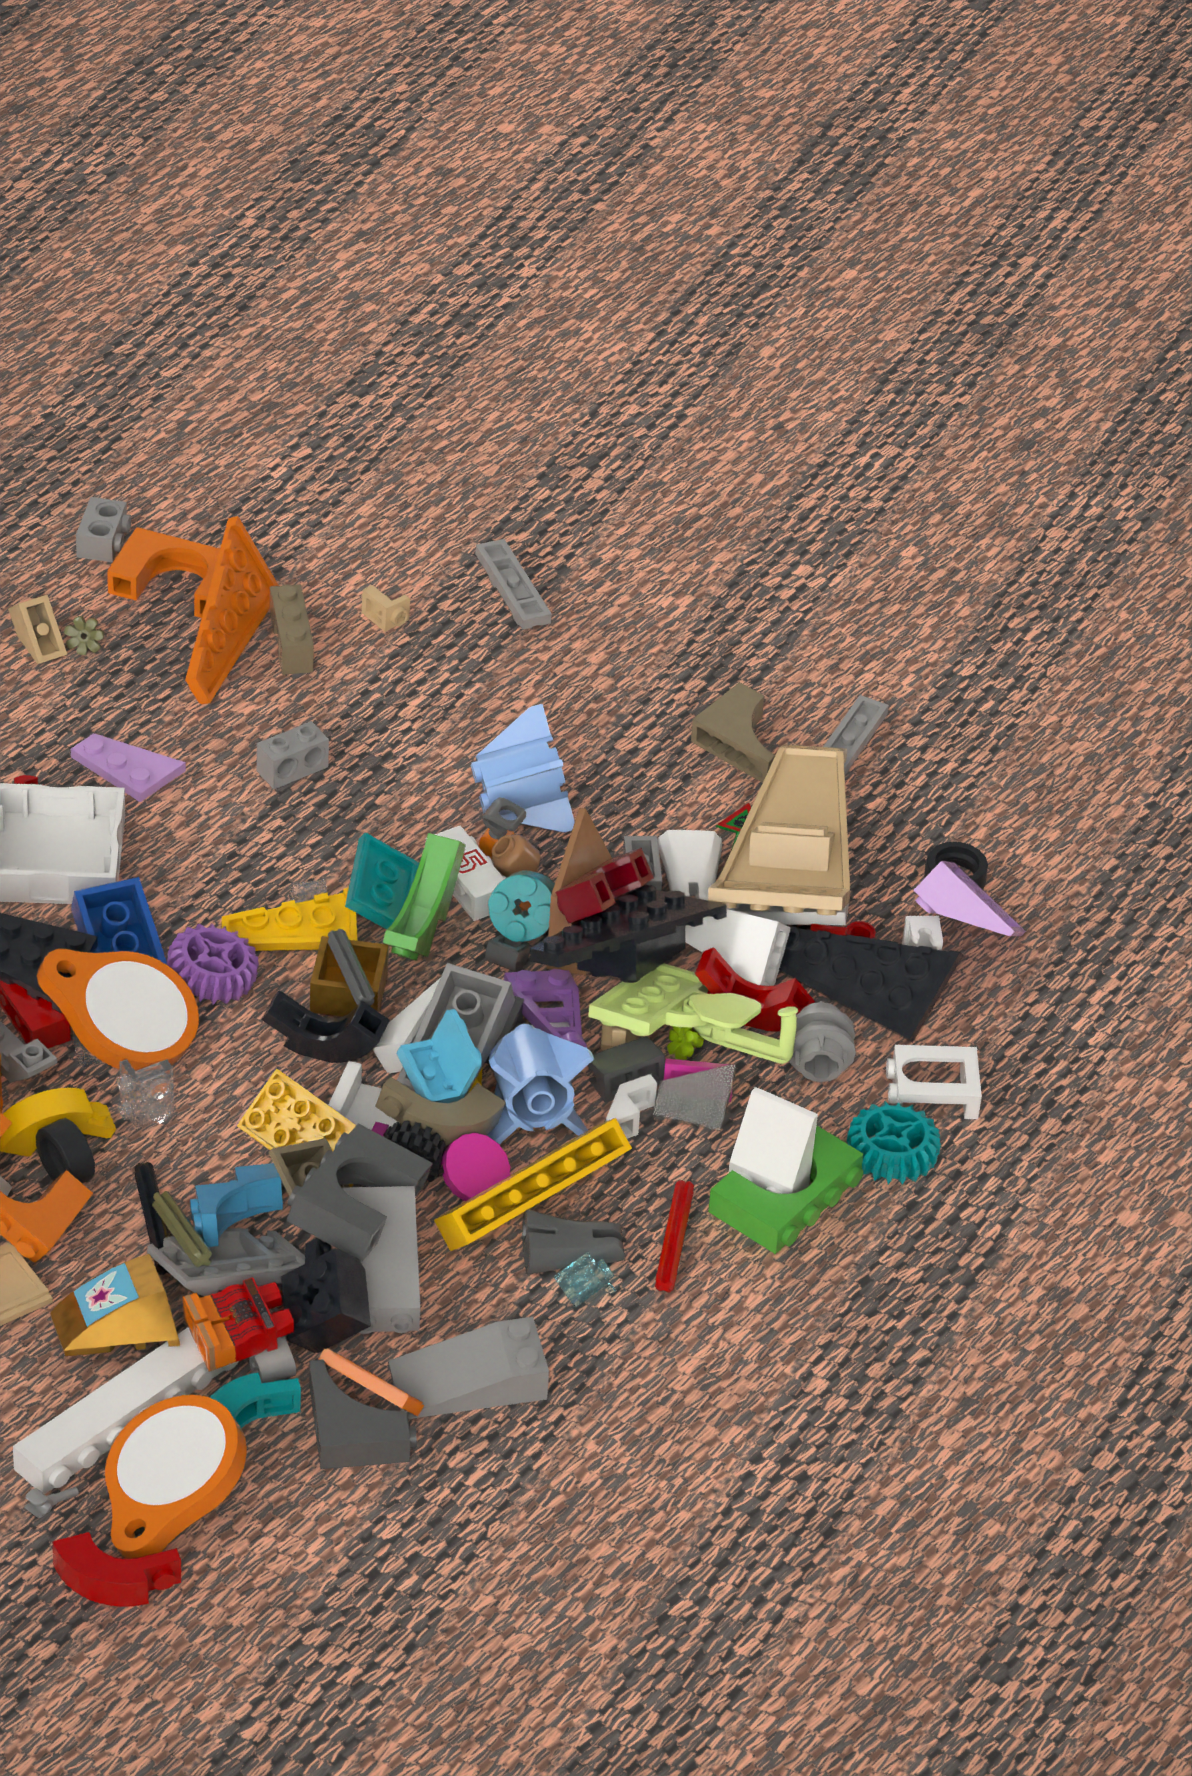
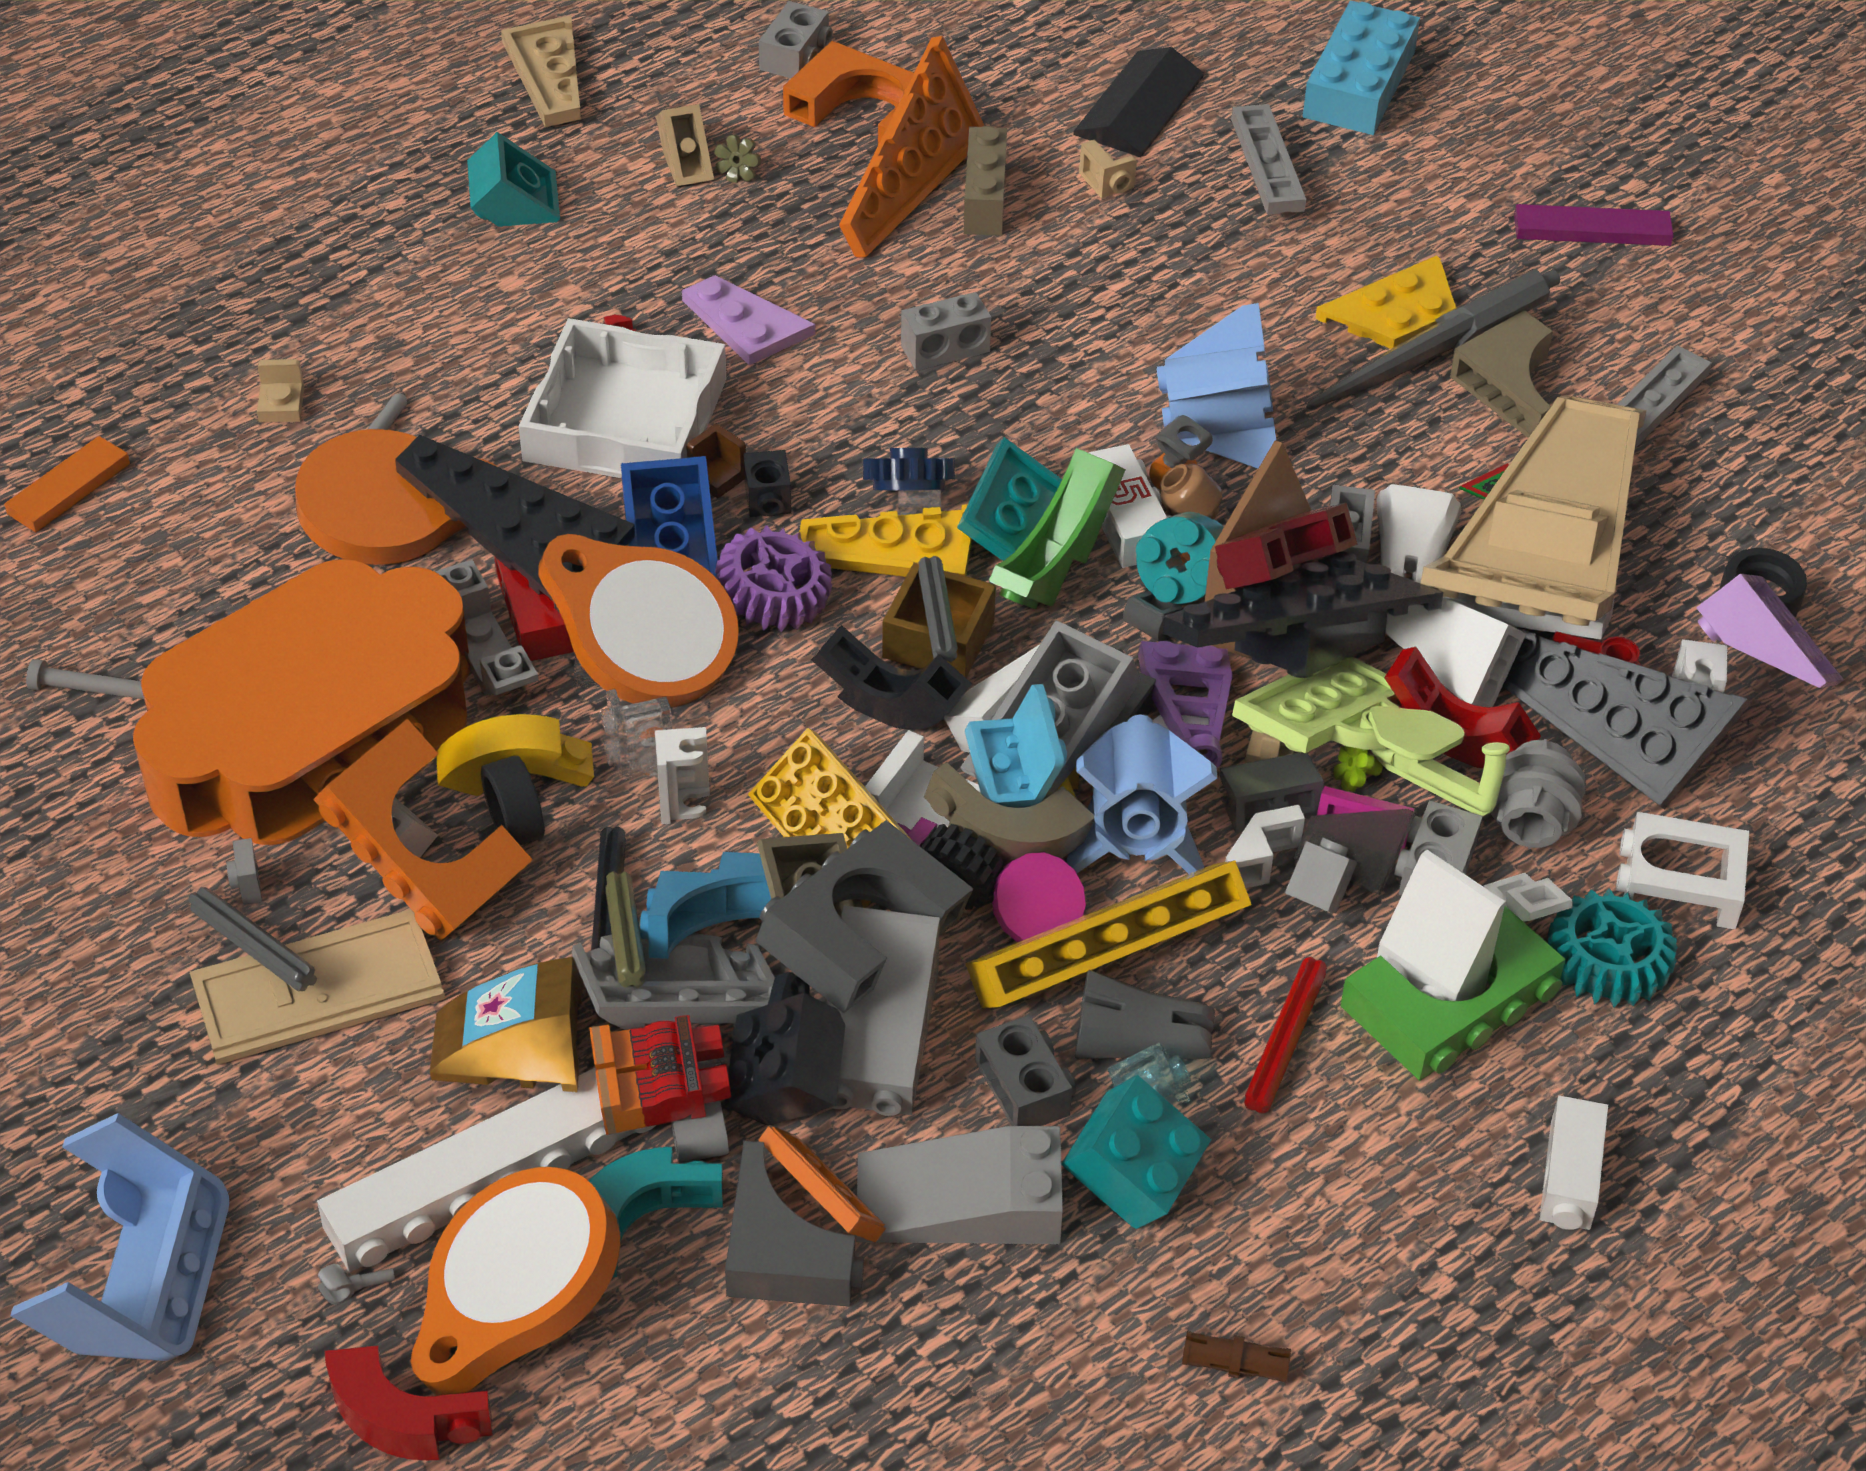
camera: 15 degrees right, 5 degrees up
(148, 870) = (723, 457): none -> reddish brown panel
(185, 892) = (767, 483): none -> black brick
(186, 1114) = (681, 771): none -> white hinge
(295, 867) = (908, 470): none -> dark blue gear
(397, 546) = (1140, 101): none -> black slope
(494, 1287) = (1018, 1078): none -> dark grey brick
(569, 498) = (1361, 67): none -> medium azure brick
(590, 1326) = (1136, 1152): none -> teal brick
(639, 690) = (1395, 305): none -> yellow wing
(677, 1121) = (1322, 875): none -> light grey brick
(685, 706) = (1450, 332): none -> dark grey piece
(688, 1450) = (1236, 1356): none -> reddish brown pin
(754, 1073) = (1444, 832): none -> light grey brick
(777, 606) = (1593, 224): none -> magenta tile
(834, 1115) = (1530, 898): none -> white slope
(894, 1290) = (1574, 1163): none -> white brick

